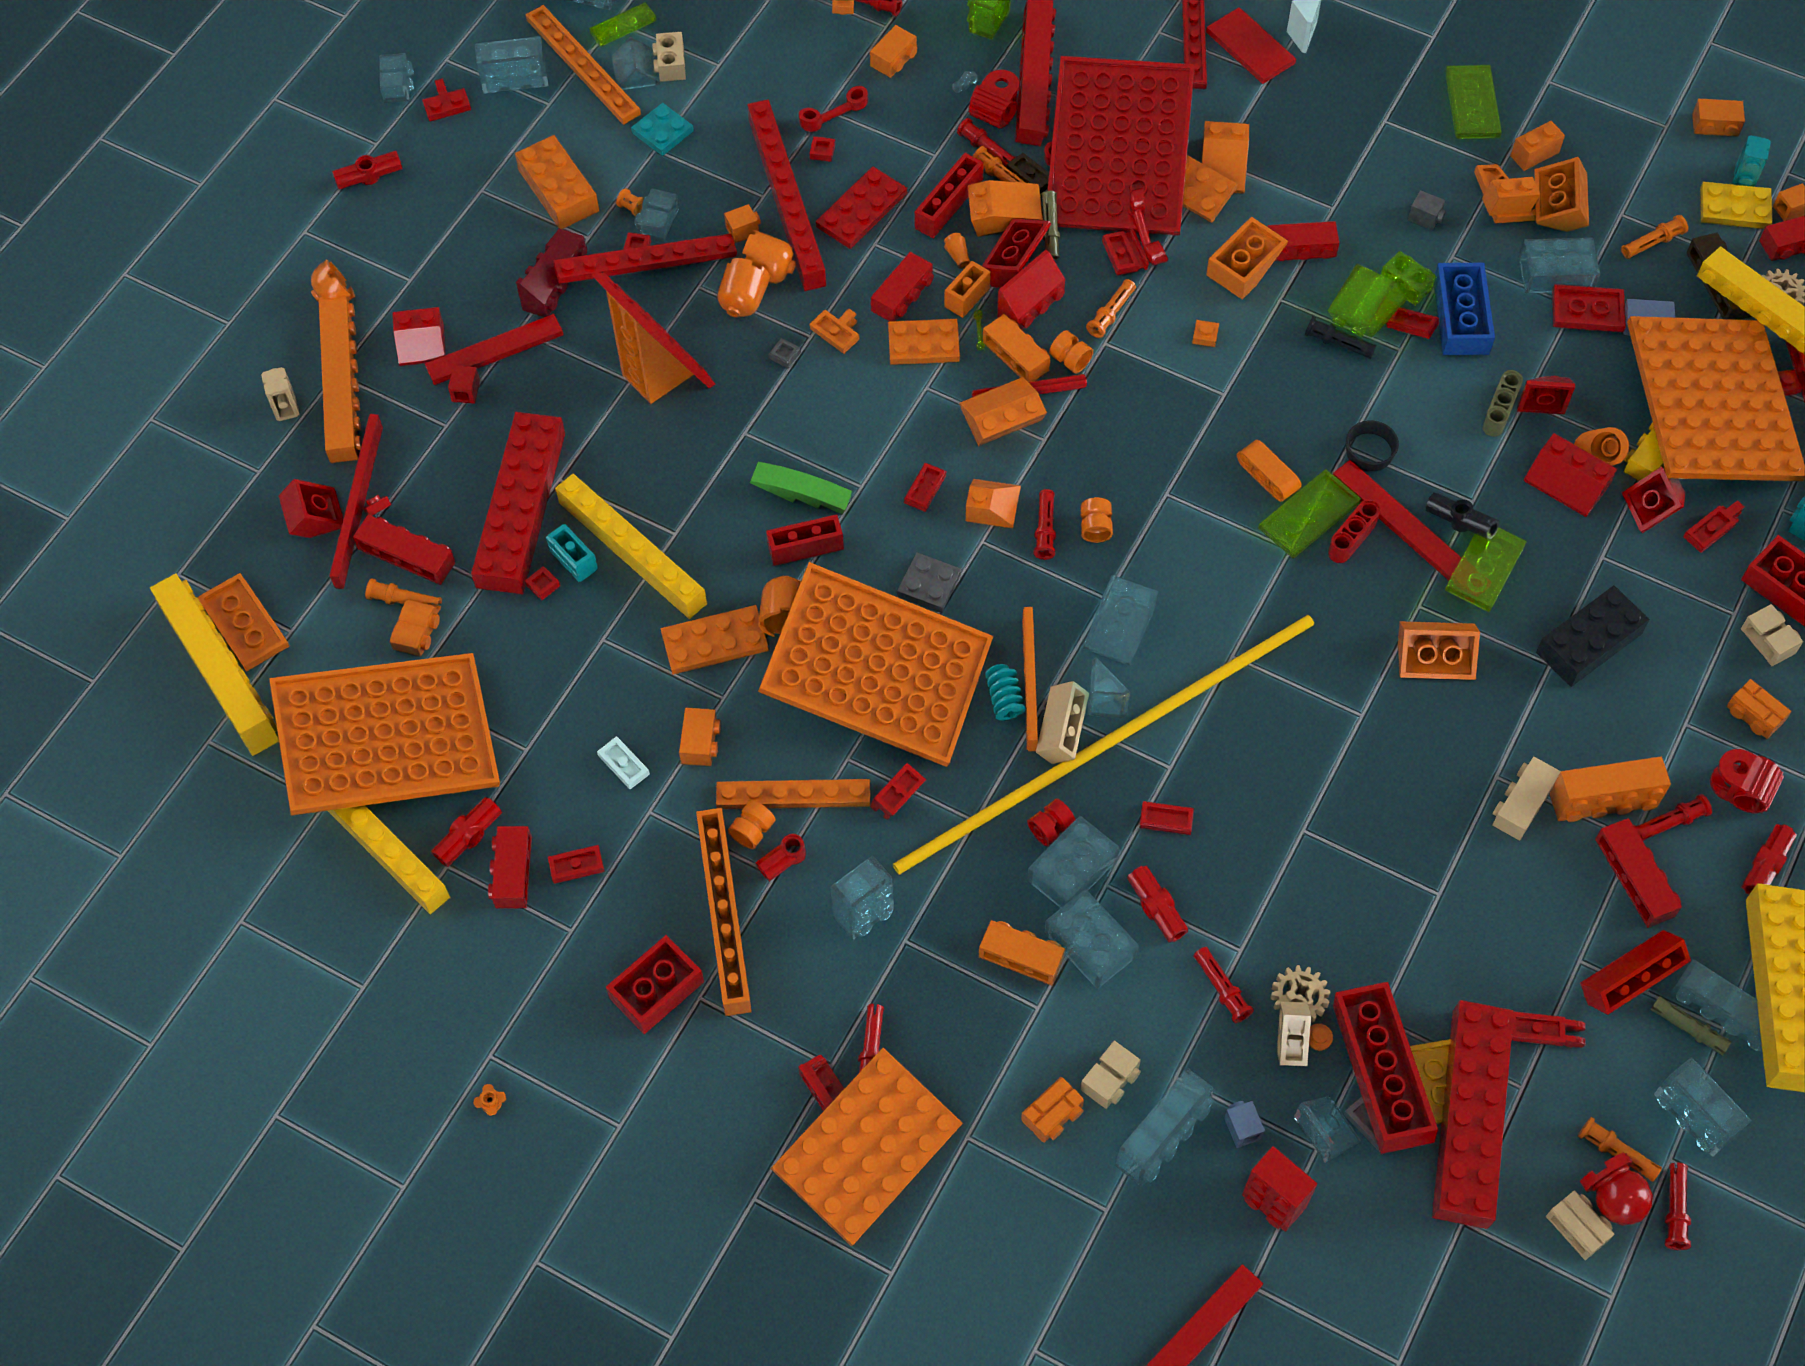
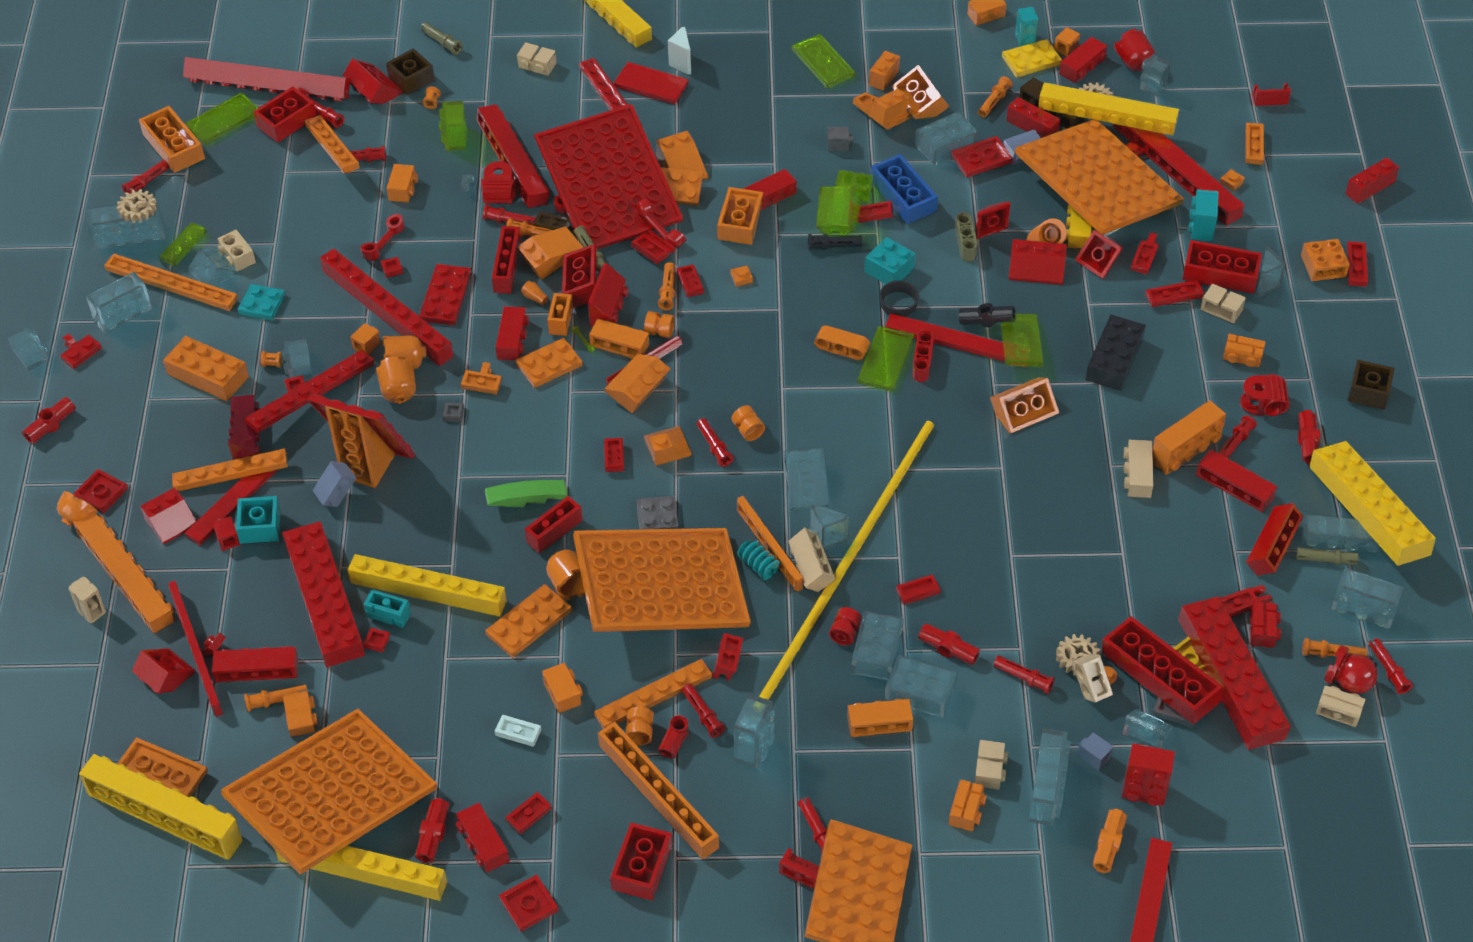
camera: 30 degrees left, 10 degrees down
(372, 275) = (101, 490): none -> red tile
(503, 384) = (258, 519): none -> teal brick
(511, 312) = (230, 470): none -> orange plate
(513, 967) = (528, 903): none -> red plate
(602, 380) = (334, 484): none -> sand blue brick
(833, 851) = (707, 717): none -> red pin
(1141, 313) = (690, 280): none -> red plate
(1190, 1241) = (1109, 840): none -> orange piece
(1389, 394) = (889, 261): none -> teal brick
(1552, 1072) = (1264, 624): none -> red brick
(1682, 286) = (1032, 118): none -> red brick
(1718, 593) = (1174, 293): none -> red plate

